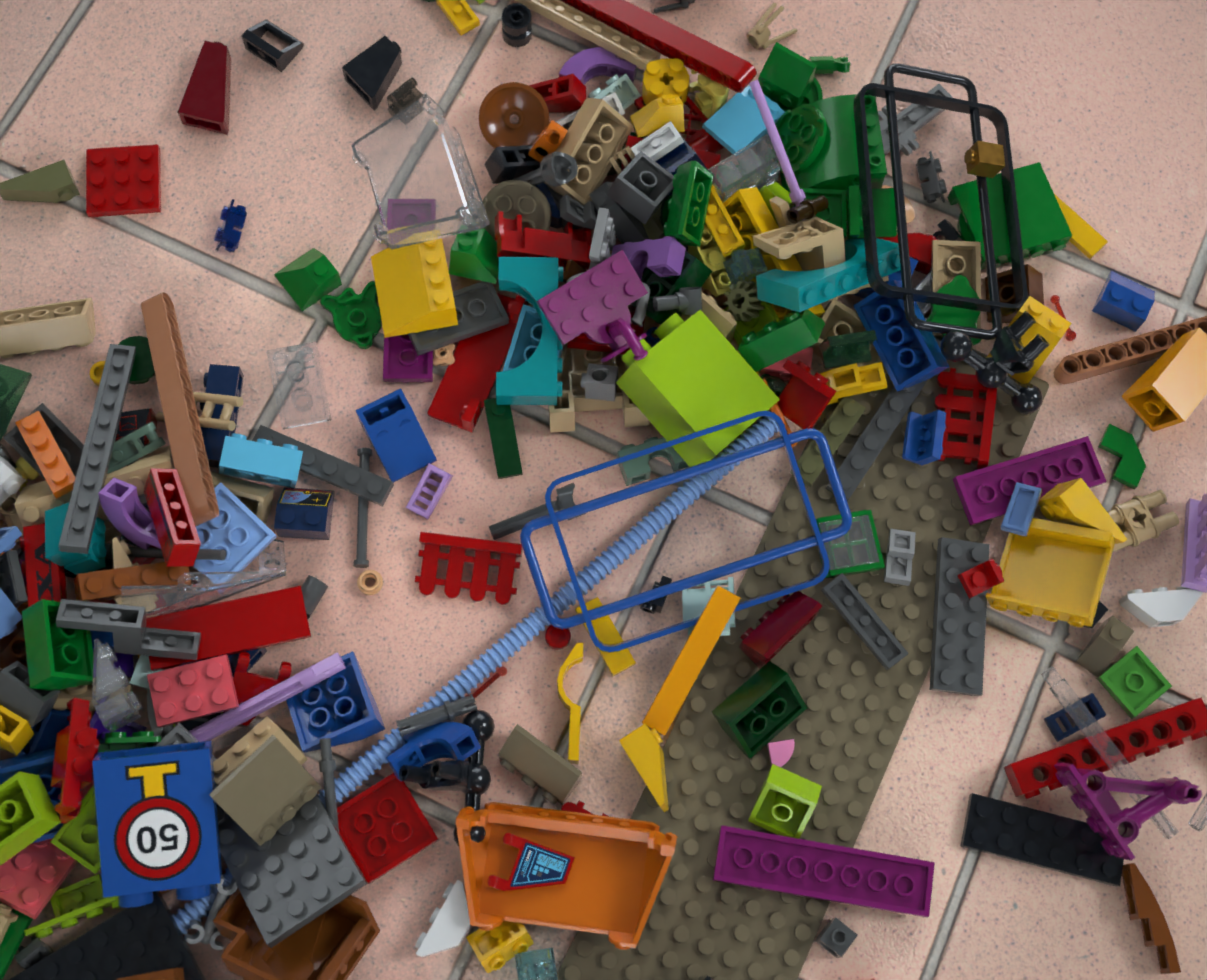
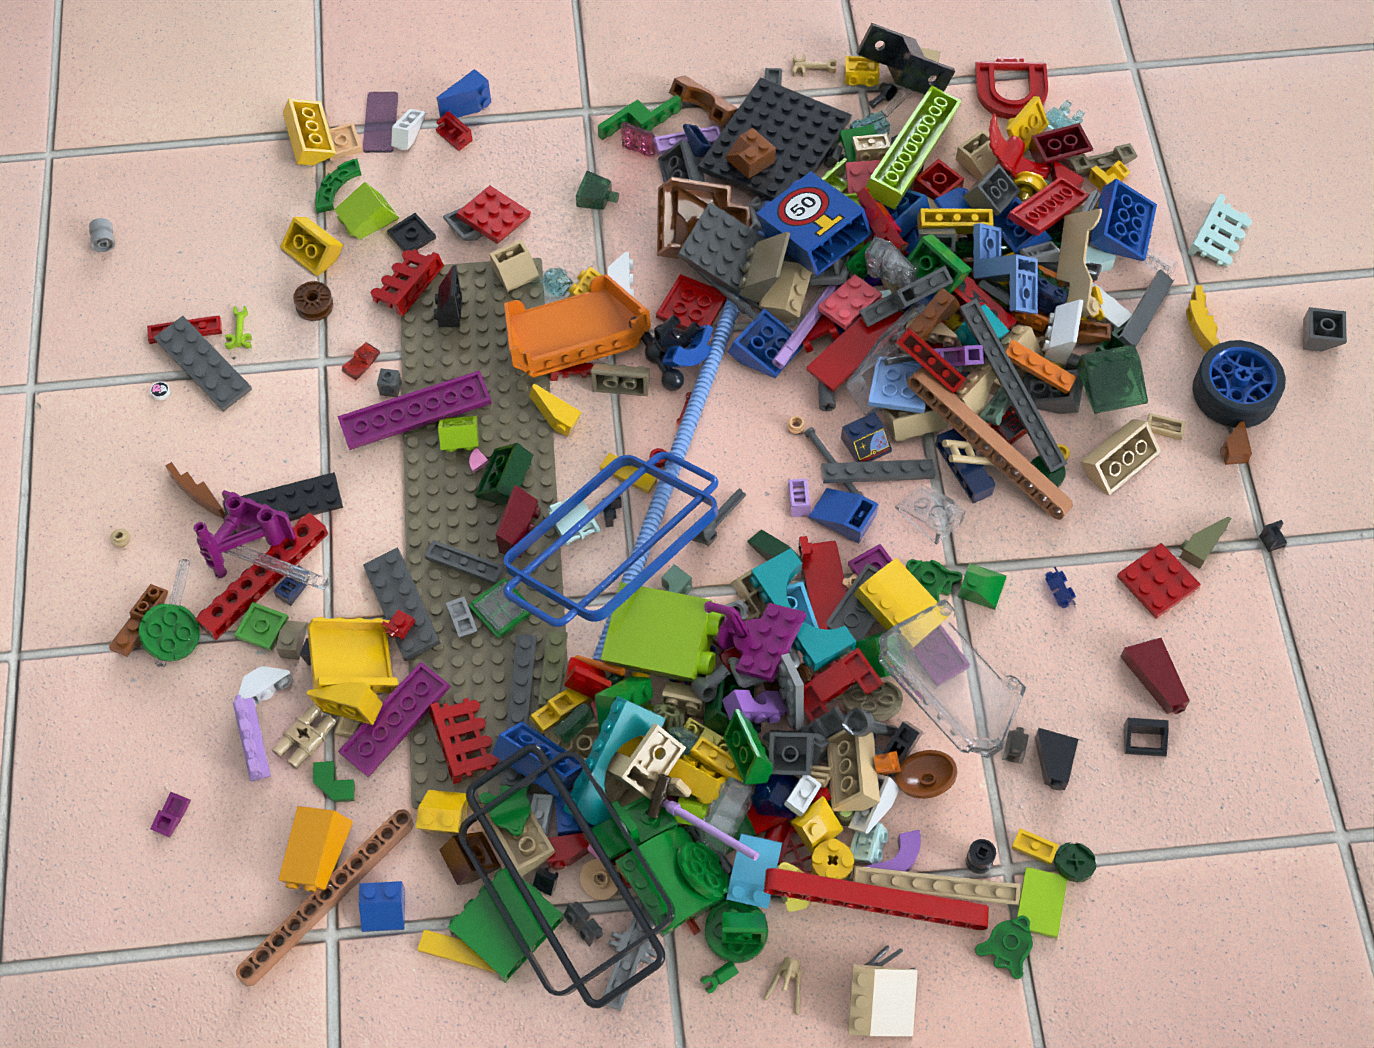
camera: 155 degrees right, 10 degrees down
(260, 460) = (911, 436): medium azure slope -> none
(436, 715) = (694, 373): dark grey pin -> none
(456, 559) = (748, 474): red fence -> none
(534, 866) = (591, 320): flag -> none
(562, 93) = (913, 814): red slope -> none
(574, 658) = (623, 420): yellow piece -> none
(691, 660) = (563, 477): light orange tile -> none
(924, 437) = (485, 702): blue bracket -> none
(984, 159) = (546, 922): pearl gold brick -> none
(1007, 357) = (453, 766): black connector -> none
(1021, 509) = (391, 686): medium blue tile -> none
(1055, 299) = (413, 857): clear red hinge -> none

